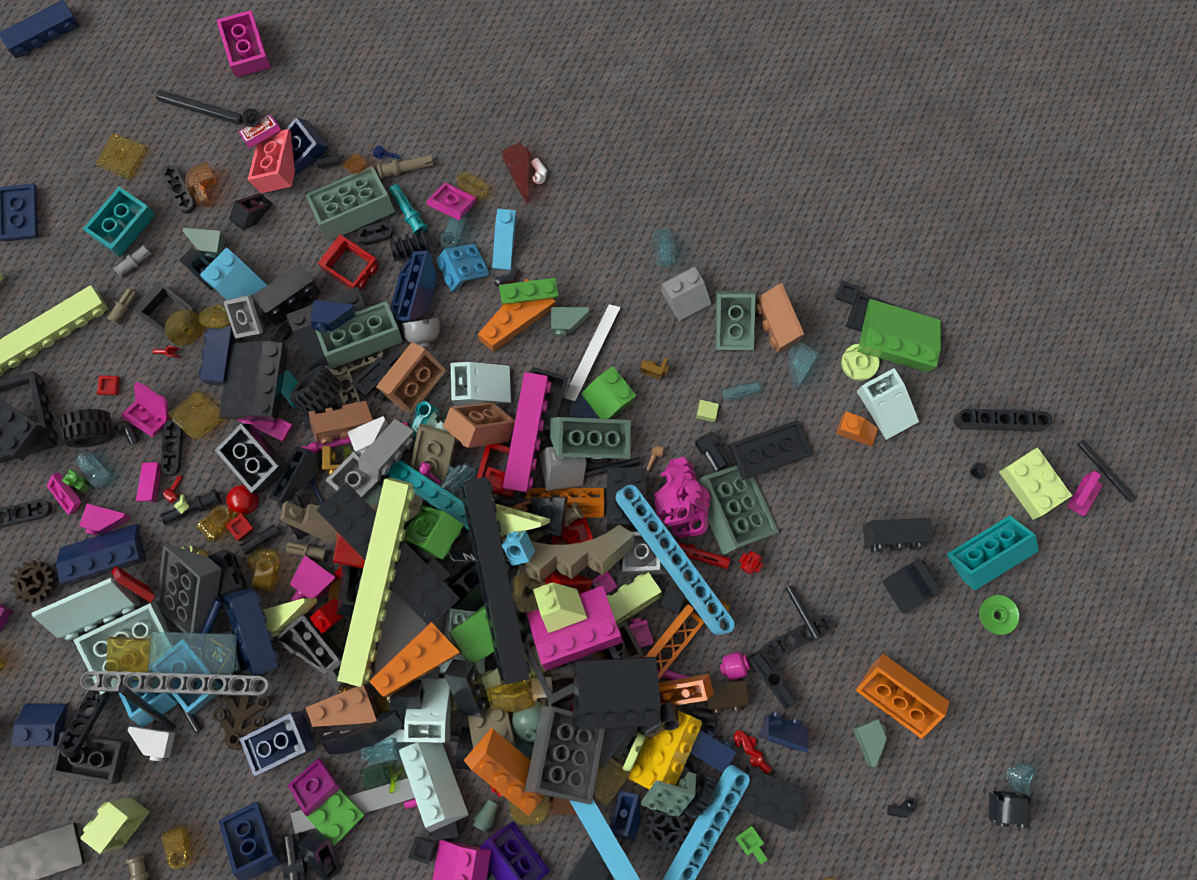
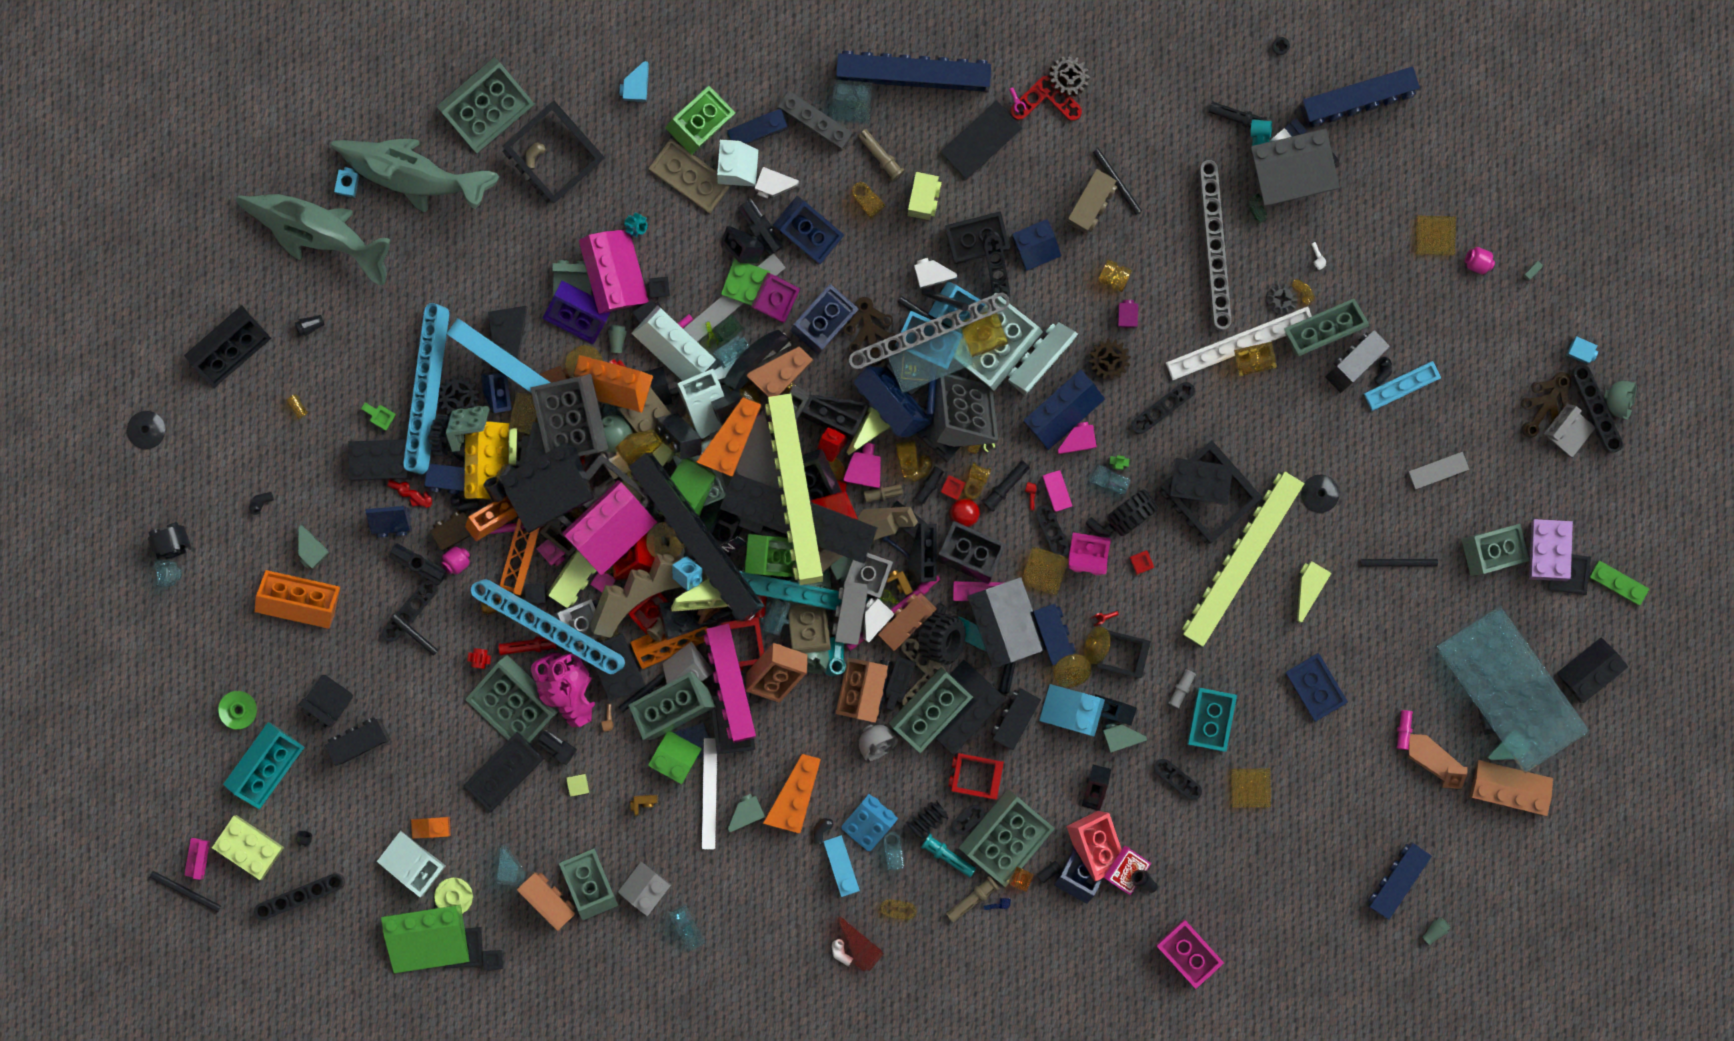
camera: 155 degrees right, 10 degrees up
(63, 493) = (1126, 447): dark pink plate -> none
(121, 306) = (1168, 641): dark tan axle -> none
(133, 584) = (1015, 396): red tile -> none
(181, 505) = (1012, 483): yellowish green hand -> none
(198, 180) = (1162, 793): clear orange brick -> none
(199, 107) = (1202, 871): black axle -> none
(244, 316) = (1043, 679): light grey slope -> none
(330, 315) = (960, 712): dark blue slope -> none
(414, 288) = (903, 777): dark blue wedge -> none
(425, 469) = (809, 612): dark pink hand -> none
(451, 201) = (908, 882): dark pink tile -> none
(480, 383) = (797, 715): light aqua slope -> none
(496, 478) = (741, 629): red plate -> none
(528, 291) = (790, 819): bright green plate -> none
(559, 606) = (629, 539): yellowish green slope -> none
(740, 390) = (554, 817): clear light blue pin -> none

